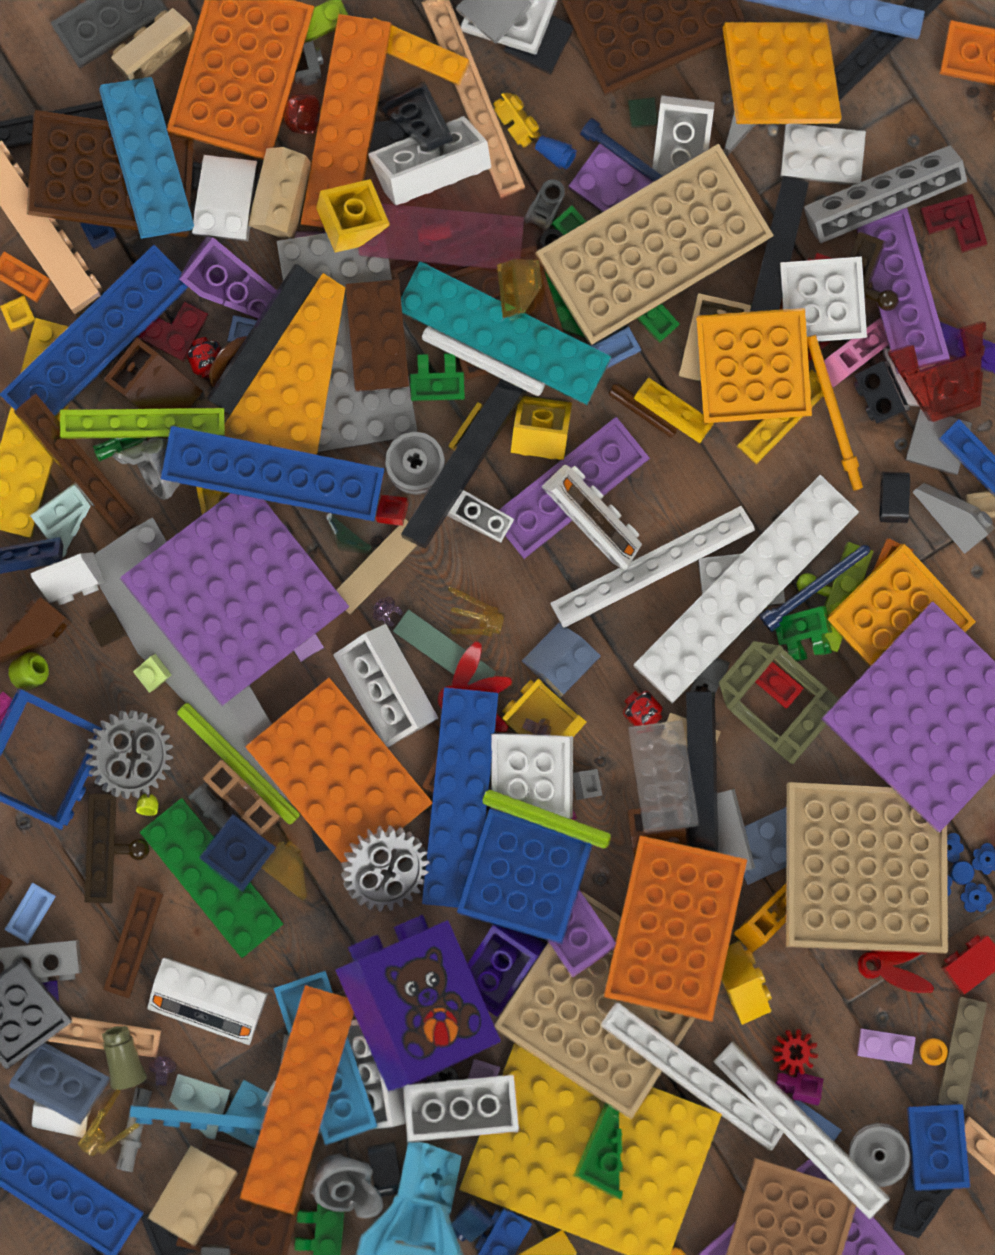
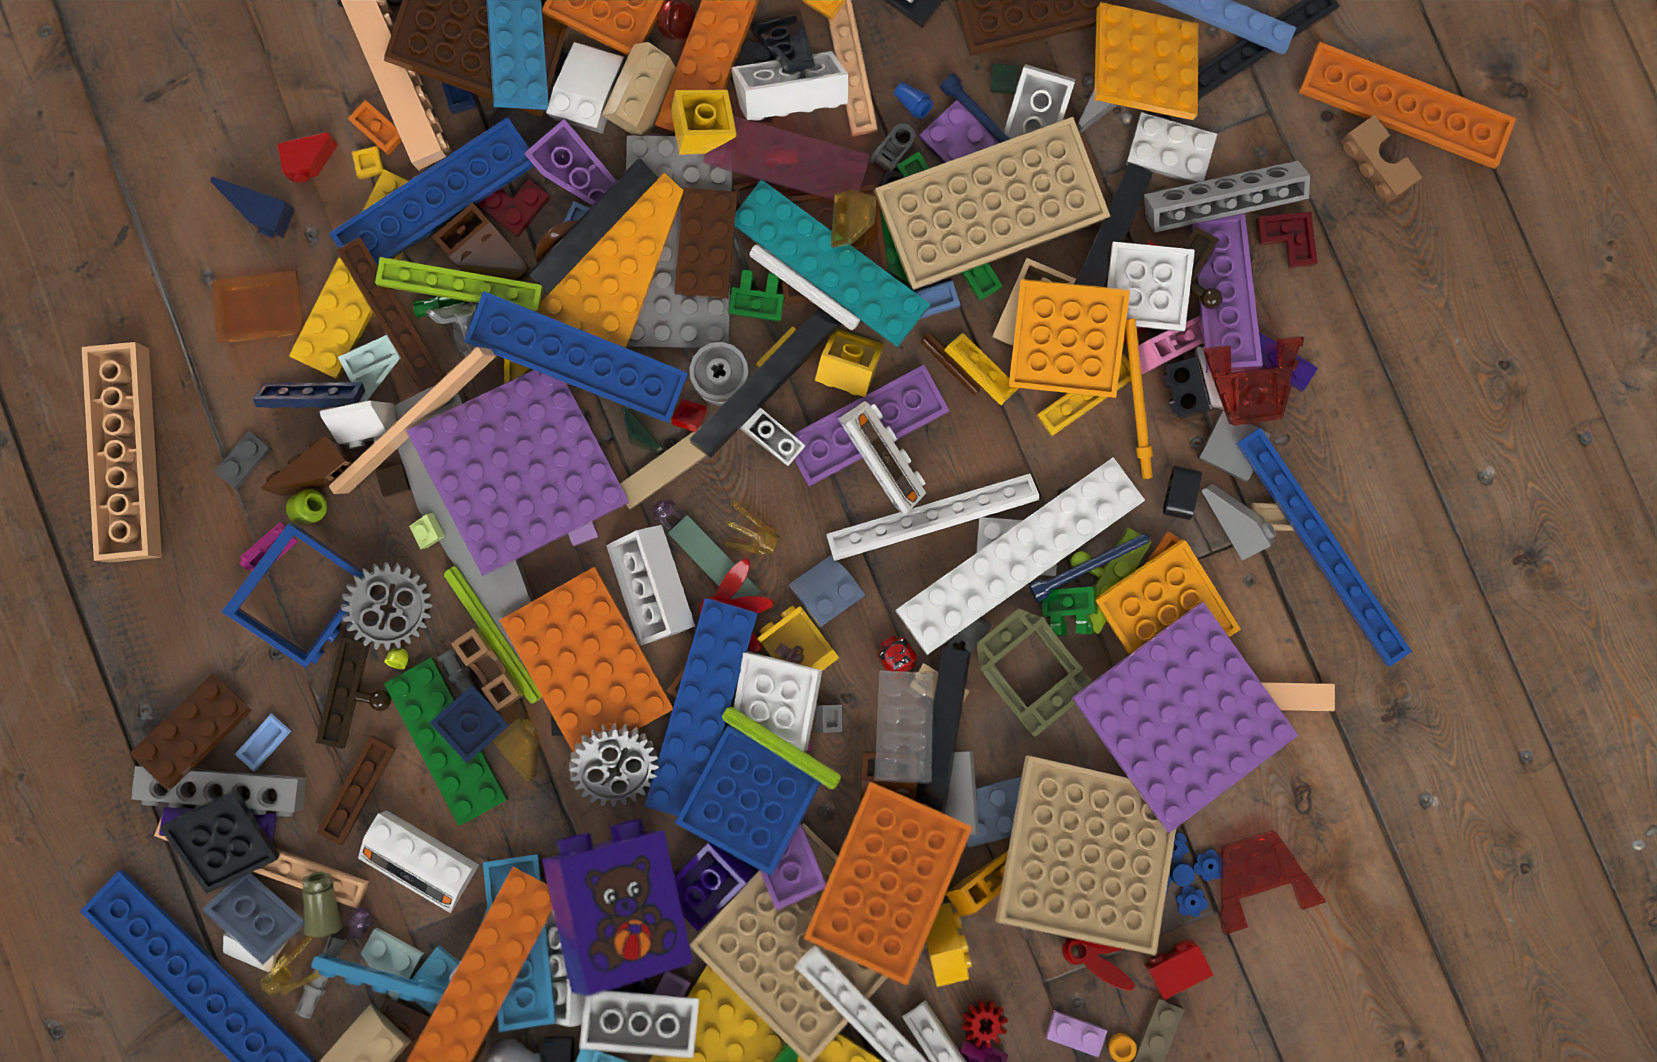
camera: 20 degrees right, 0 degrees up
(121, 566) = (419, 413): none -> light nougat tile
(202, 356) = (533, 231): red head -> none
(524, 126) = (878, 52): yellow hinge -> none
(779, 685) = (1035, 656): red plate -> none

